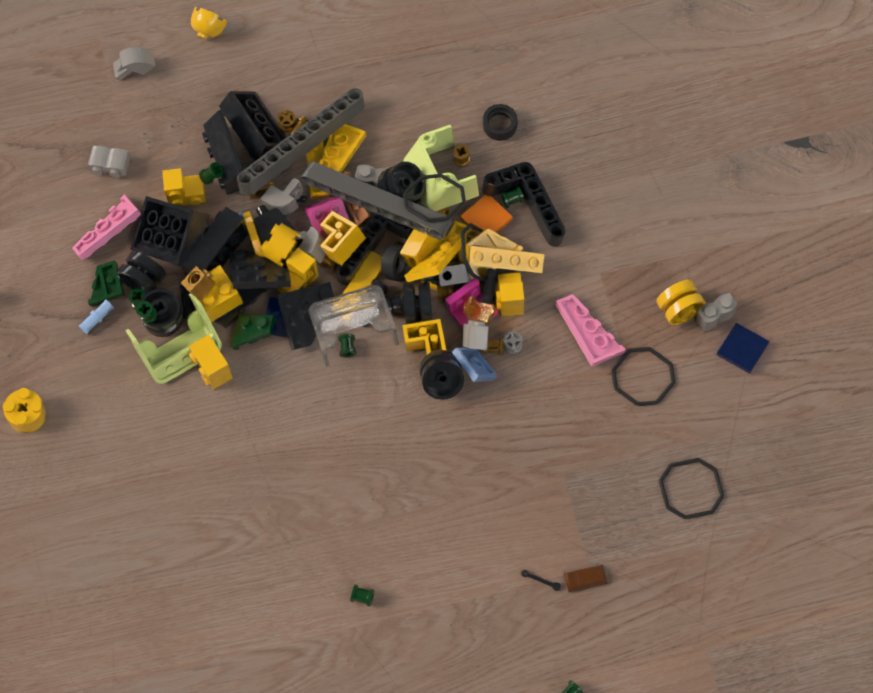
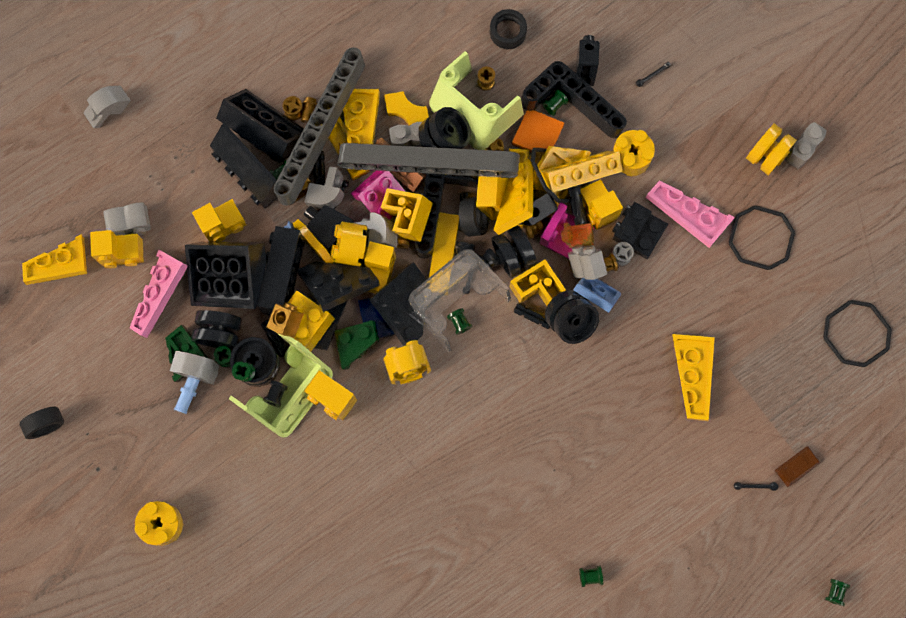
camera: 25 degrees left, 10 degrees up
(39, 176) = (60, 263): none -> yellow wing
(88, 181) = (116, 250): none -> yellow brick
(110, 296) = (194, 367): none -> light grey brick
(166, 344) = (275, 393): none -> black bush
(207, 23) = (164, 35): yellow cylinder -> none
(208, 175) = (244, 191): dark green bush -> none
(285, 360) = (406, 362): none -> yellow brick
(287, 177) = (319, 170): none -> black axle
(377, 151) = (400, 106): none -> yellow tile
(410, 363) = (531, 314): none -> black axle
(438, 218) = (483, 160): black piece -> none
(532, 461) = (695, 366): none -> yellow wing
(537, 329) = (639, 229): none -> black plate
(557, 166) = (588, 56): none -> black torso
(567, 255) = (635, 142): none -> yellow brick
(595, 208) = (639, 83): none -> black hinge
(742, 348) = (844, 171): clear blue tile -> none

